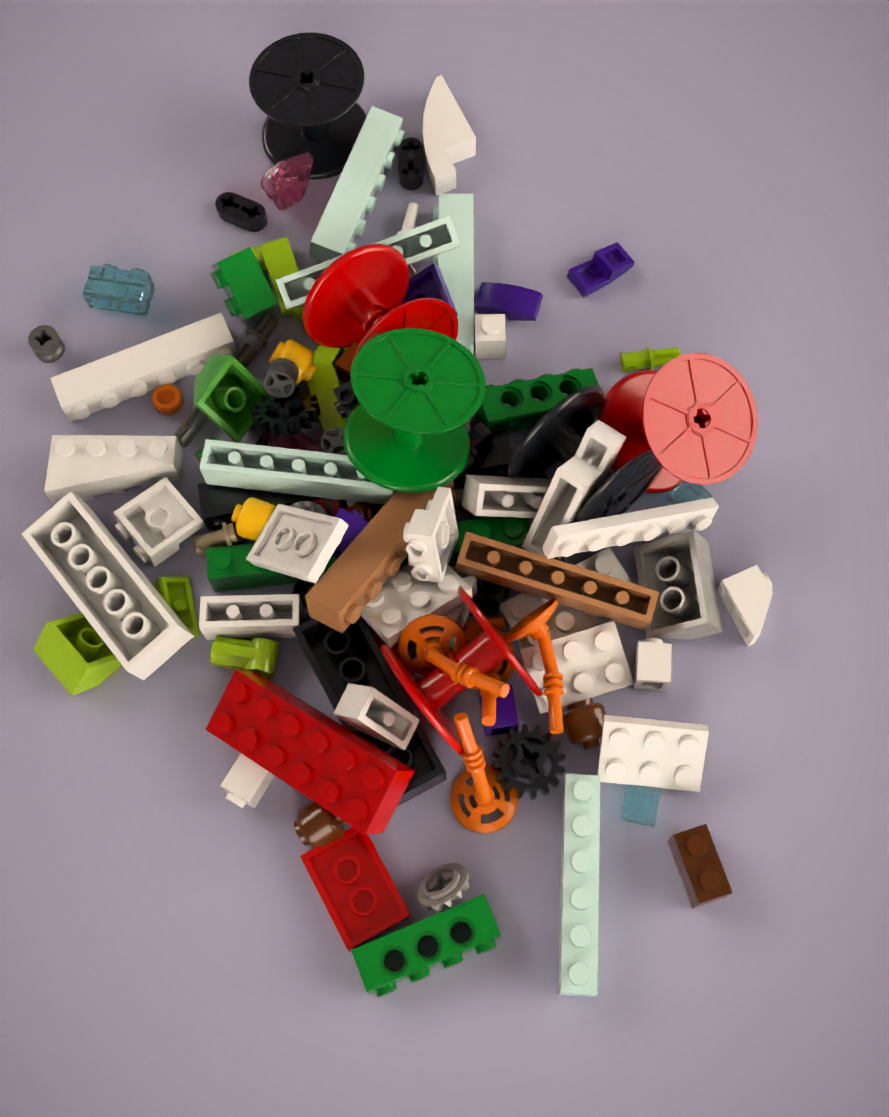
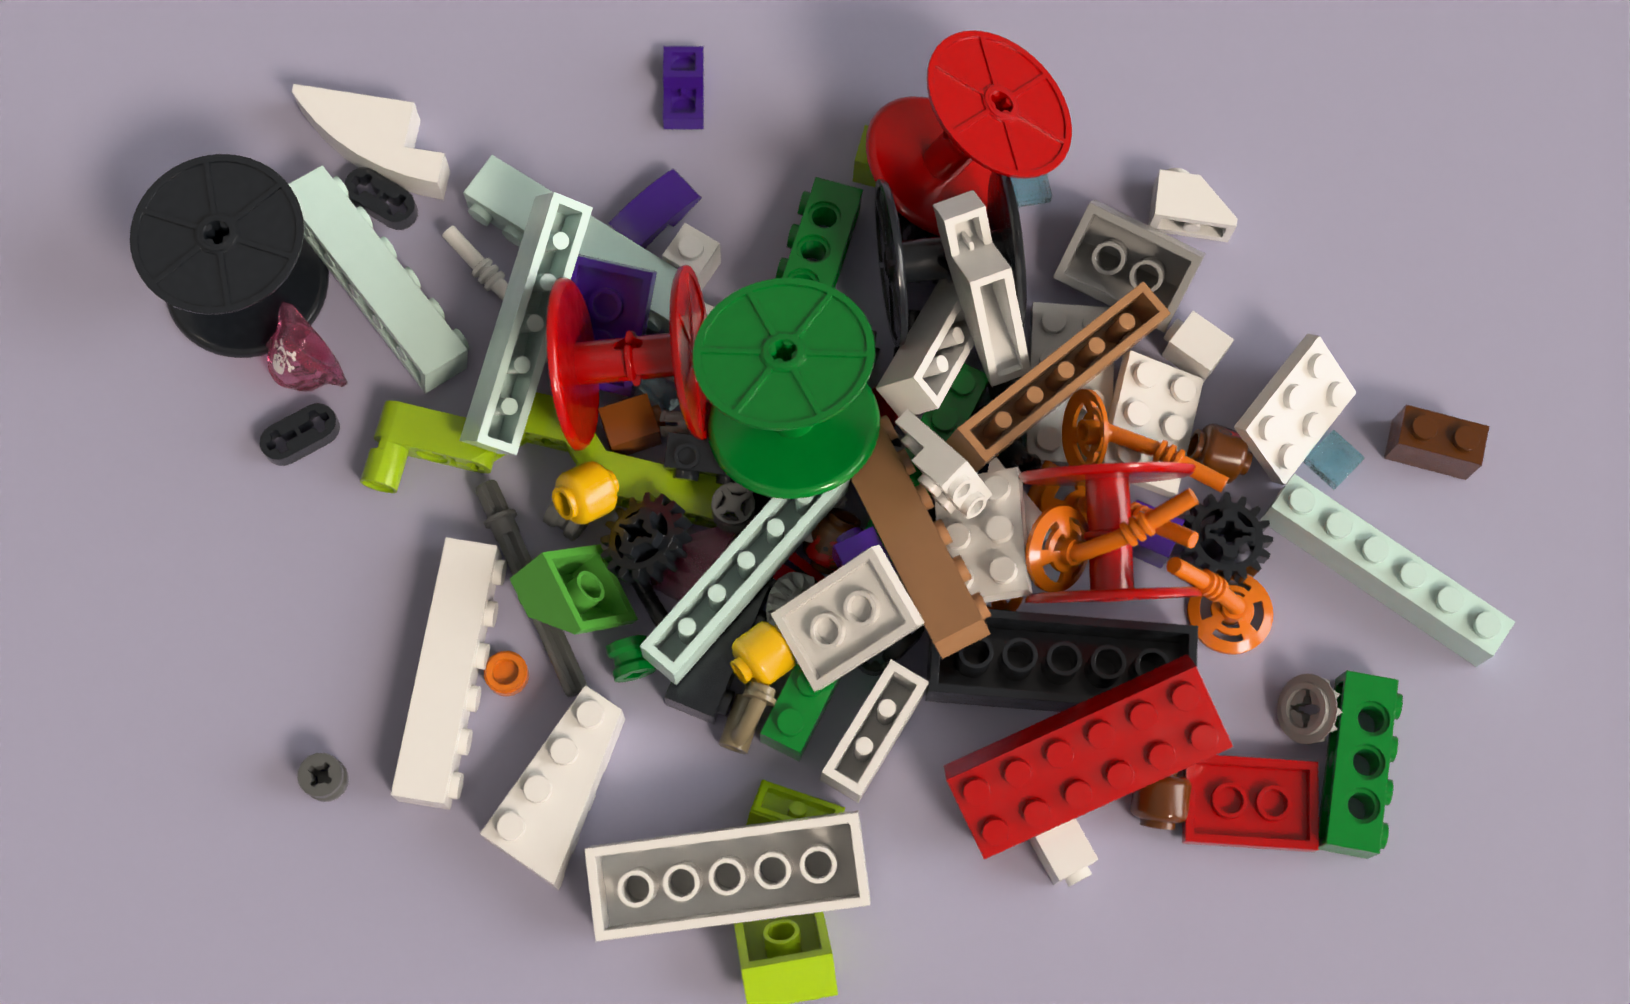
camera: 65 degrees left, 5 degrees up
(119, 289) = (310, 643): clear light blue brick -> none
(157, 522) = (676, 773): white plate -> none
(243, 284) = (433, 486): green brick -> none
(254, 655) = (917, 759): lime piece -> none
(278, 385) = (609, 514): dark grey wheel -> none
(376, 715) = (1098, 658): white slope -> none
(629, 528) = (1048, 270): white plate -> none
(647, 358) = (835, 113): lime axle -> none

